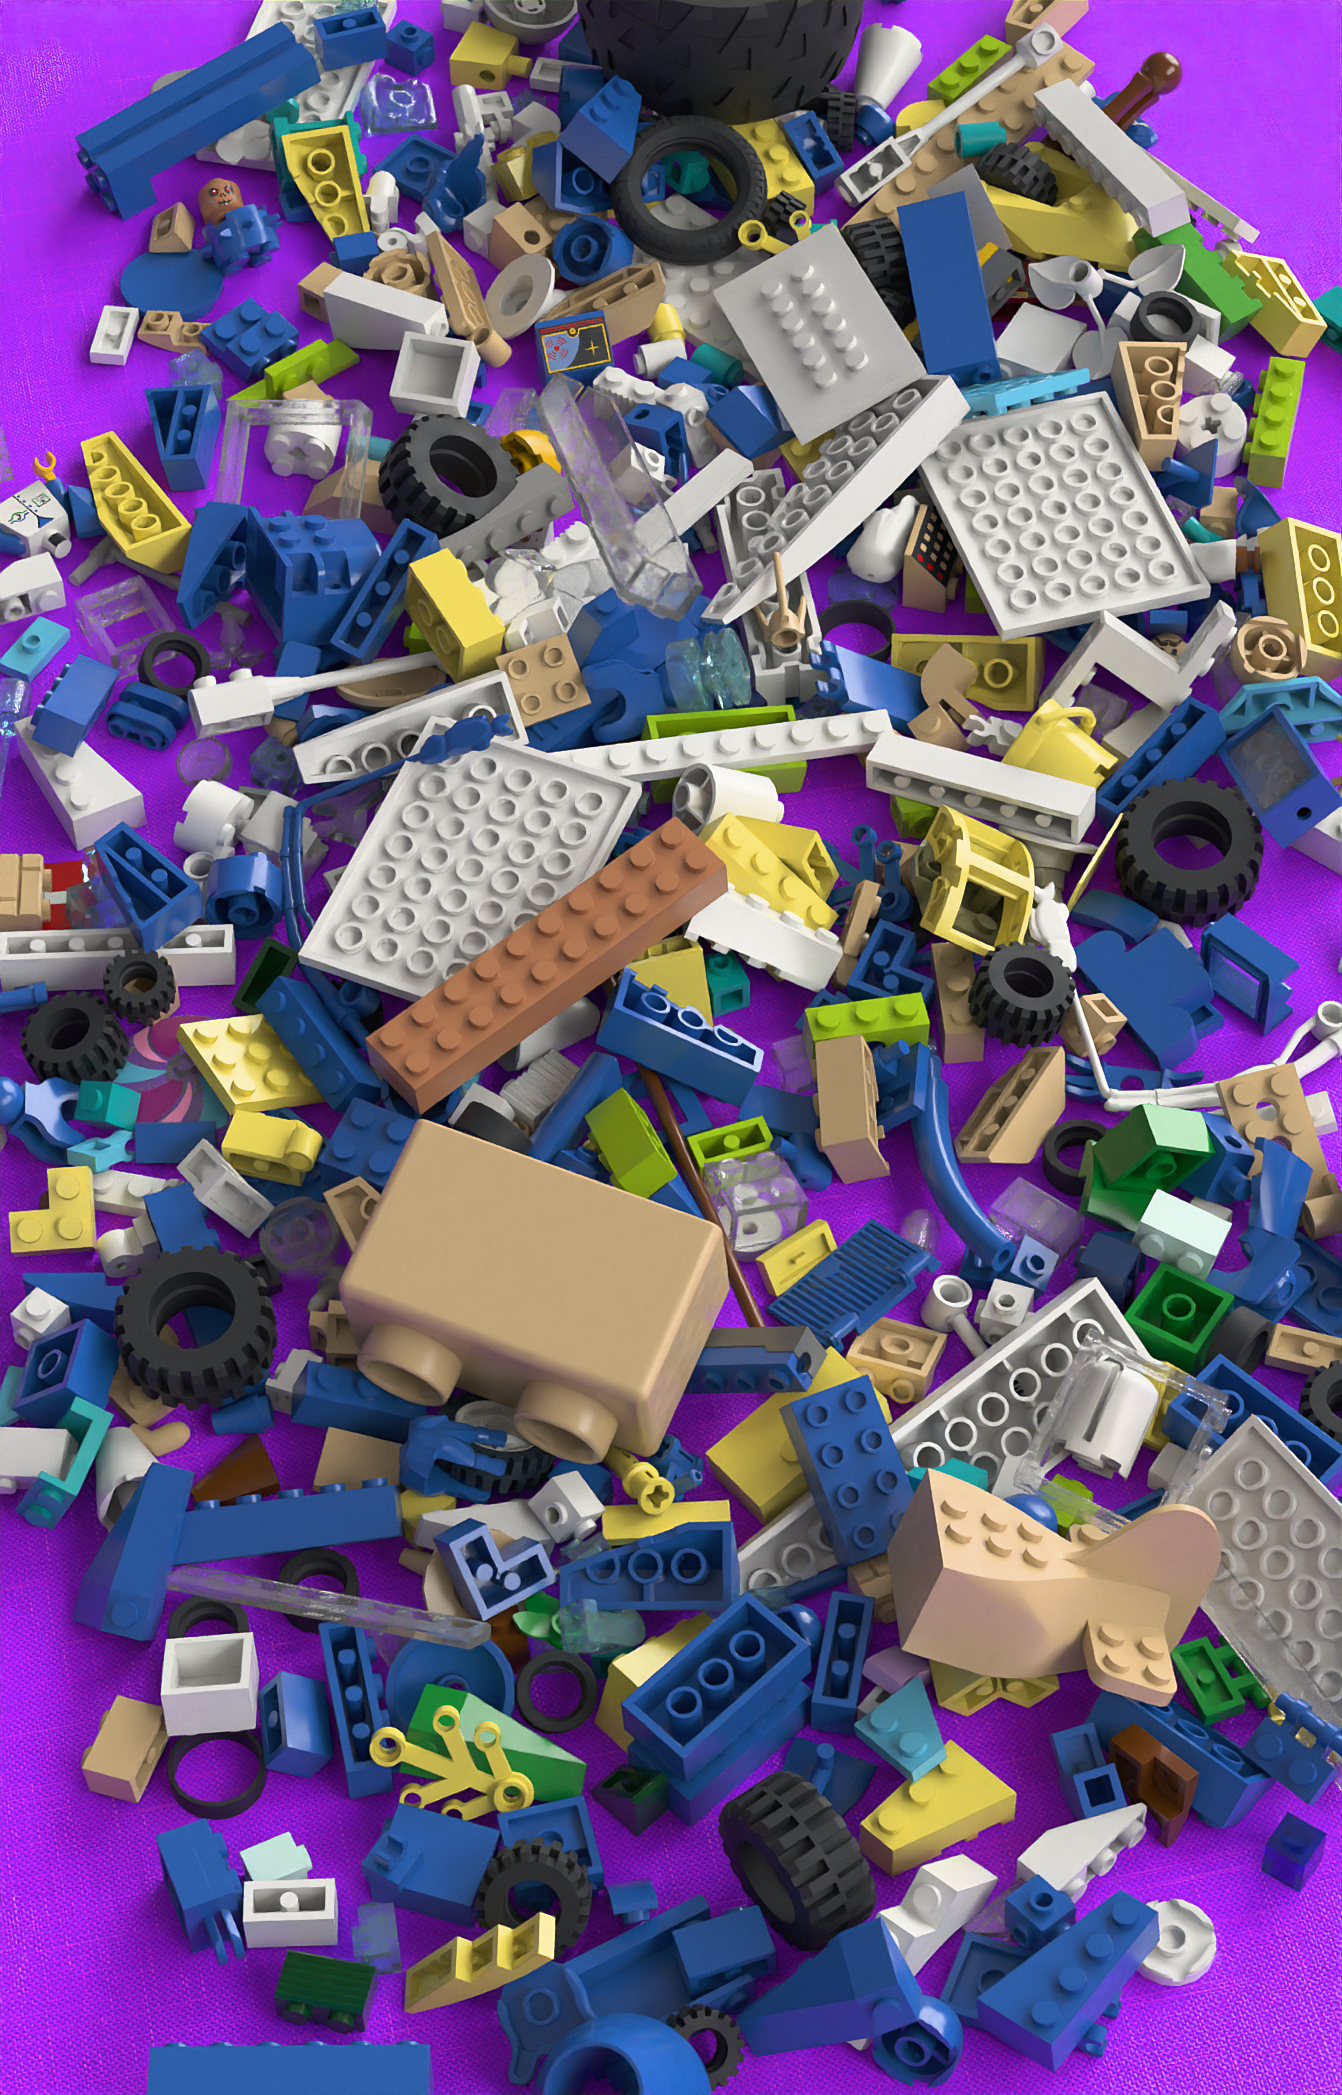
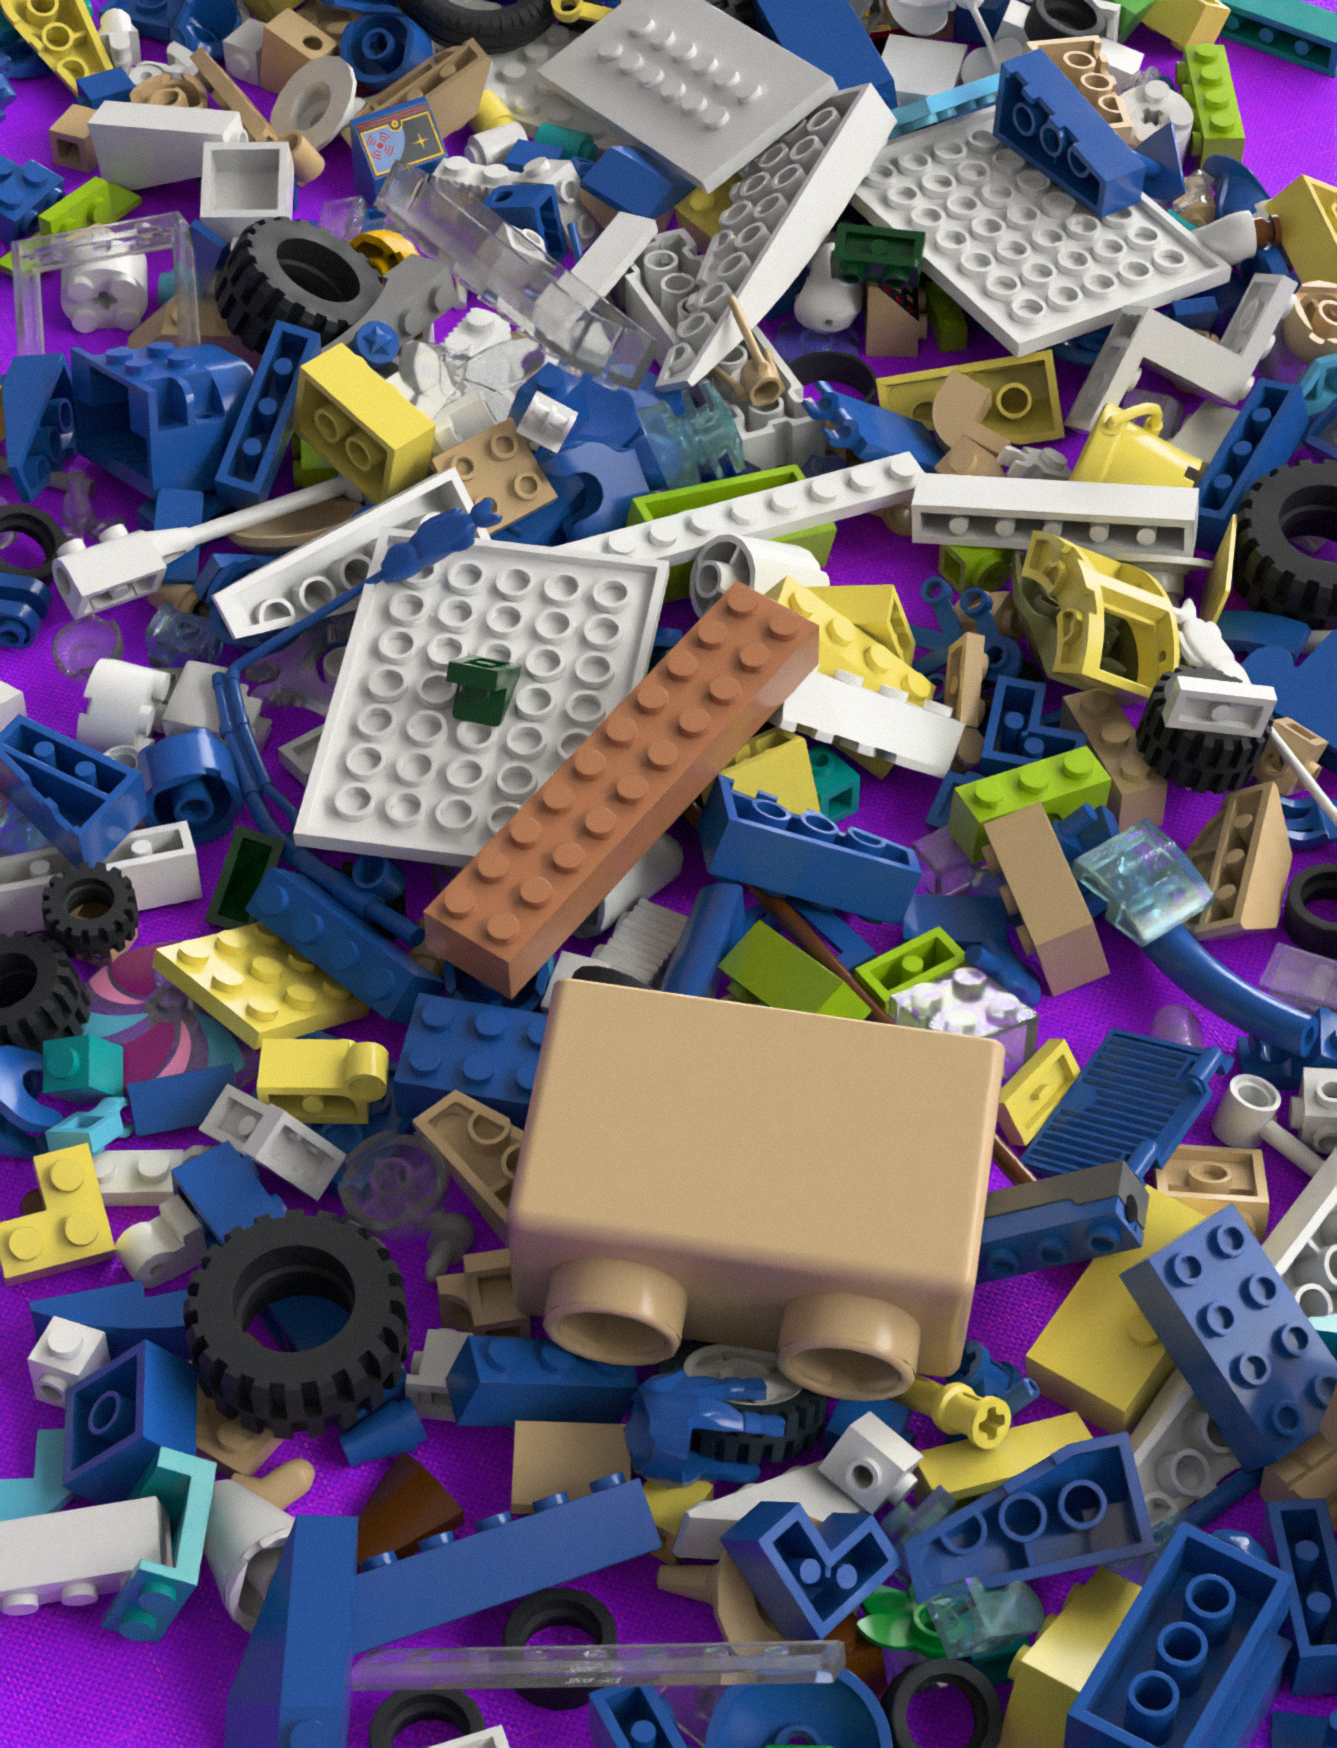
camera: 15 degrees left, 5 degrees down
(383, 436) = (210, 256): none -> blue slope
(466, 863) = (482, 688): none -> dark green slope
(490, 541) = (376, 344): none -> blue tile
(589, 643) = (546, 423): none -> white arm
(916, 530) = (877, 255): none -> dark green bracket
(926, 1110) = (1144, 882): none -> clear light blue slope
(1022, 983) = (1219, 706): none -> white plate
(1109, 443) = (1064, 135): none -> blue wedge
(1225, 501) = (1197, 188): none -> clear hand

